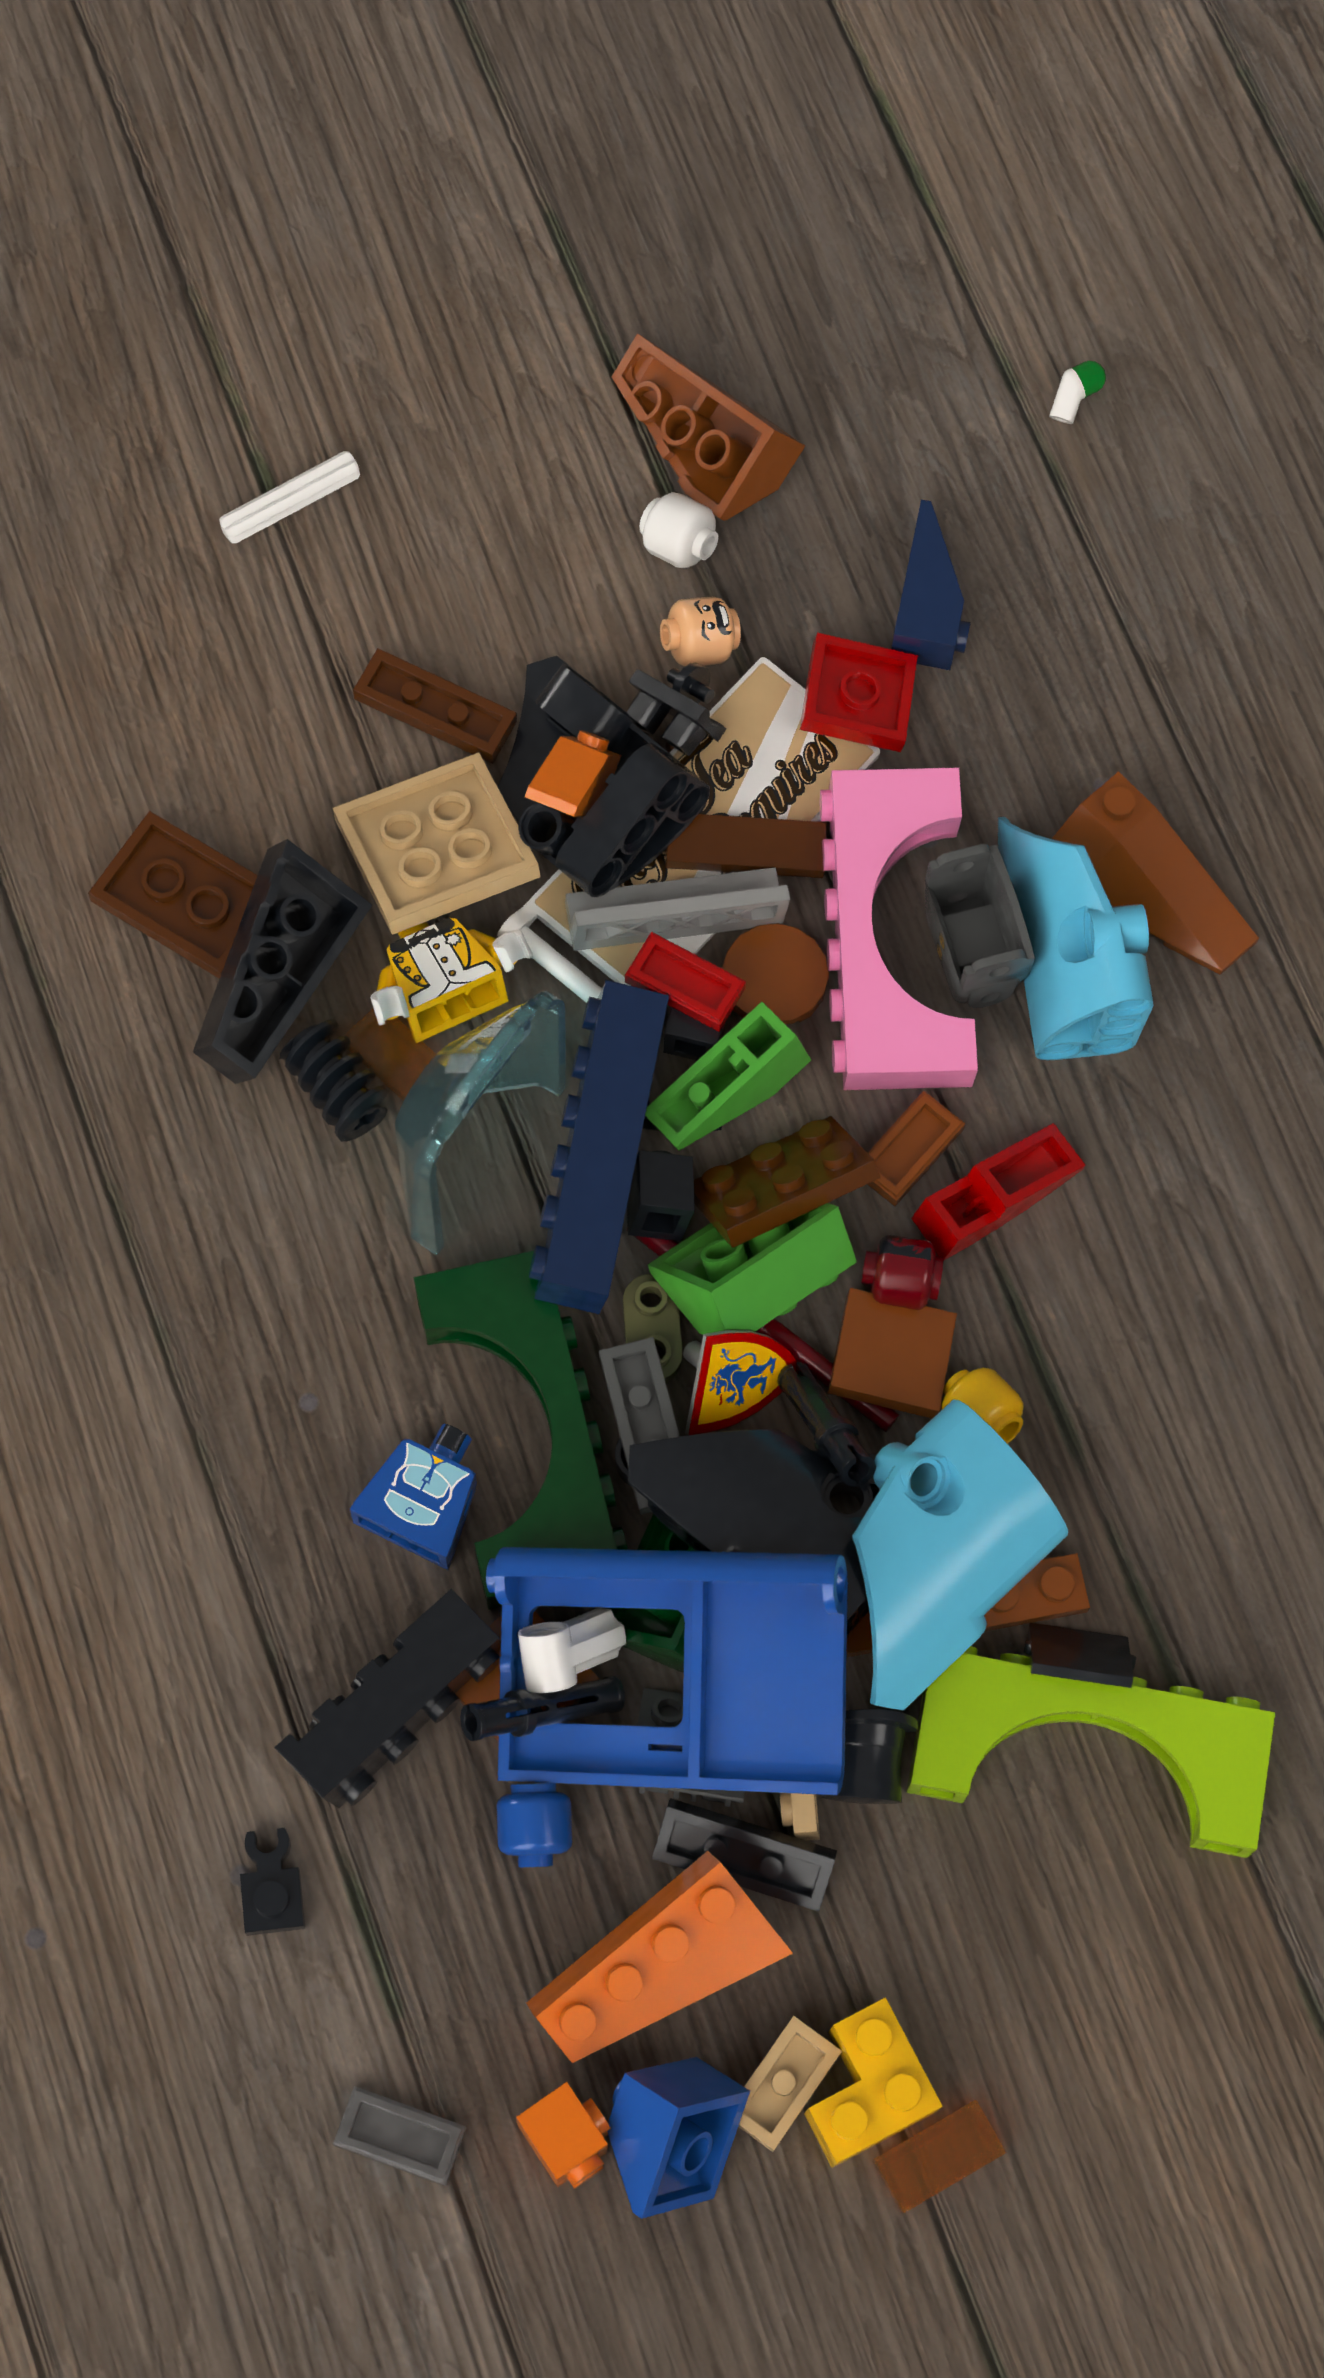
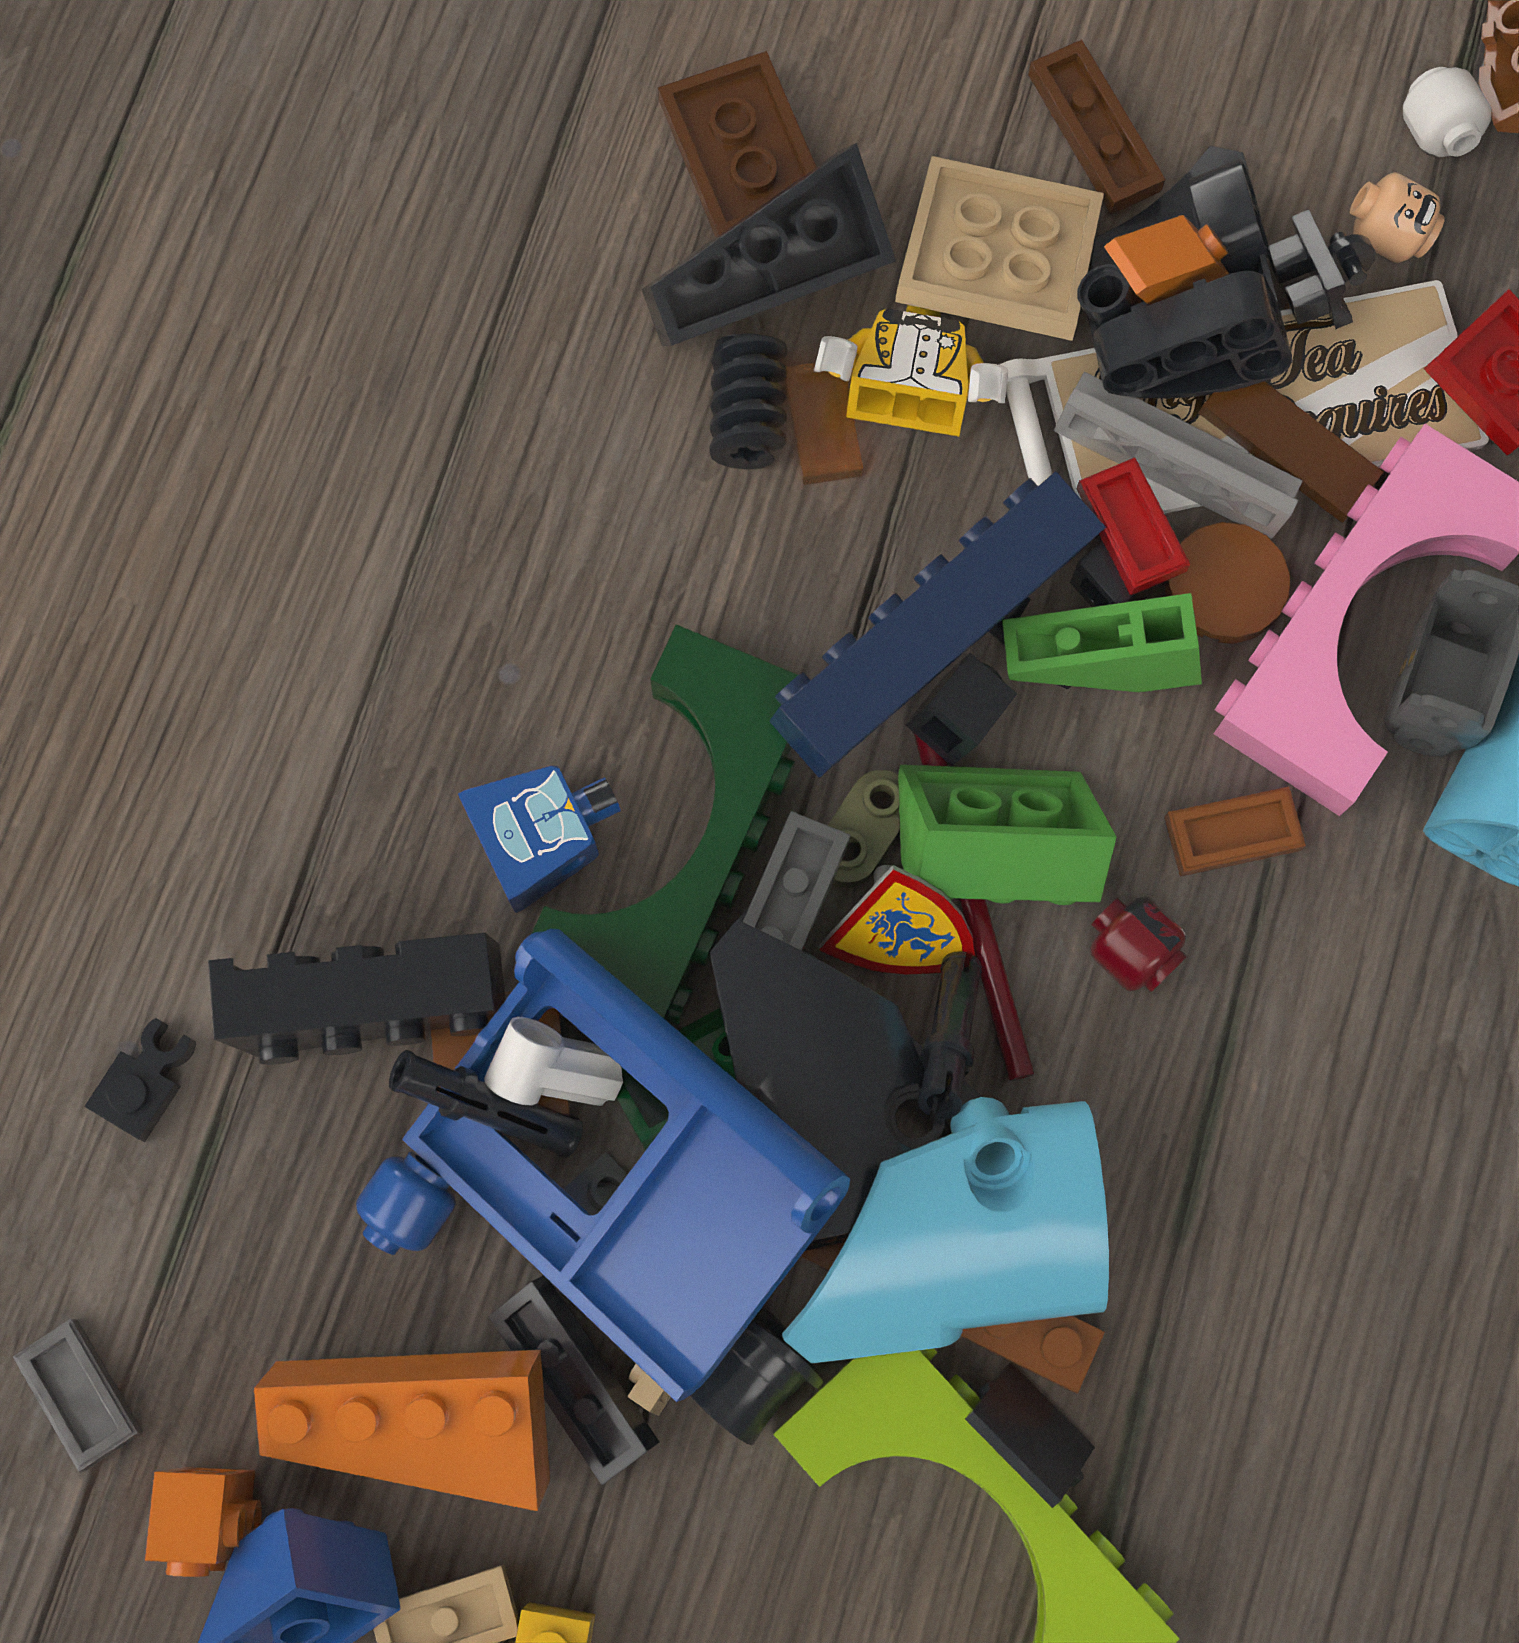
camera: 40 degrees right, 5 degrees up
(503, 1054) = (902, 465): clear light blue windscreen -> none
(783, 1180) = (1087, 776): reddish brown plate -> none
(892, 1355) = (1069, 1014): dark orange tile -> none
(989, 1397) = (1123, 1125): yellow head -> none
(997, 1191) = (1289, 931): red slope -> none

